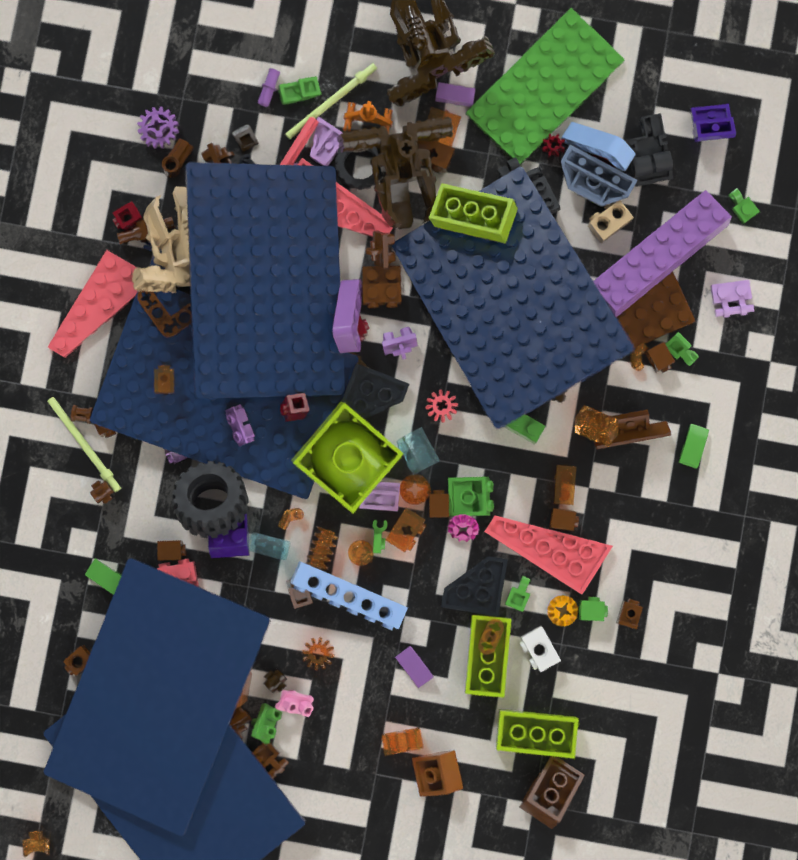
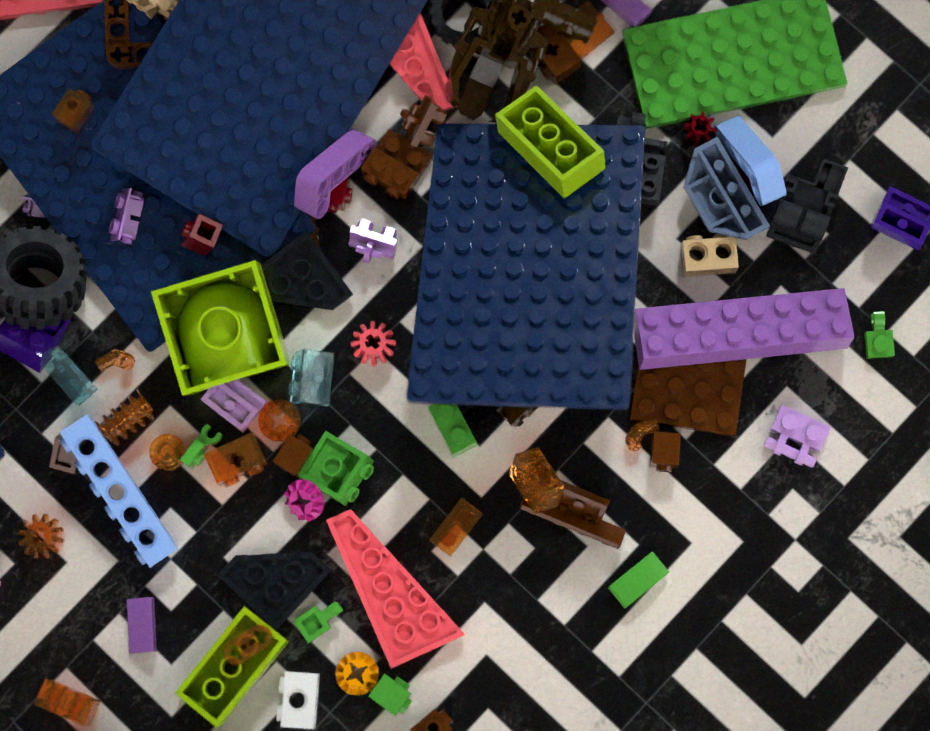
camera: 35 degrees right, 5 degrees down
(563, 519) = (427, 566): reddish brown brick -> none
(679, 347) = (695, 453): bright green plate -> none

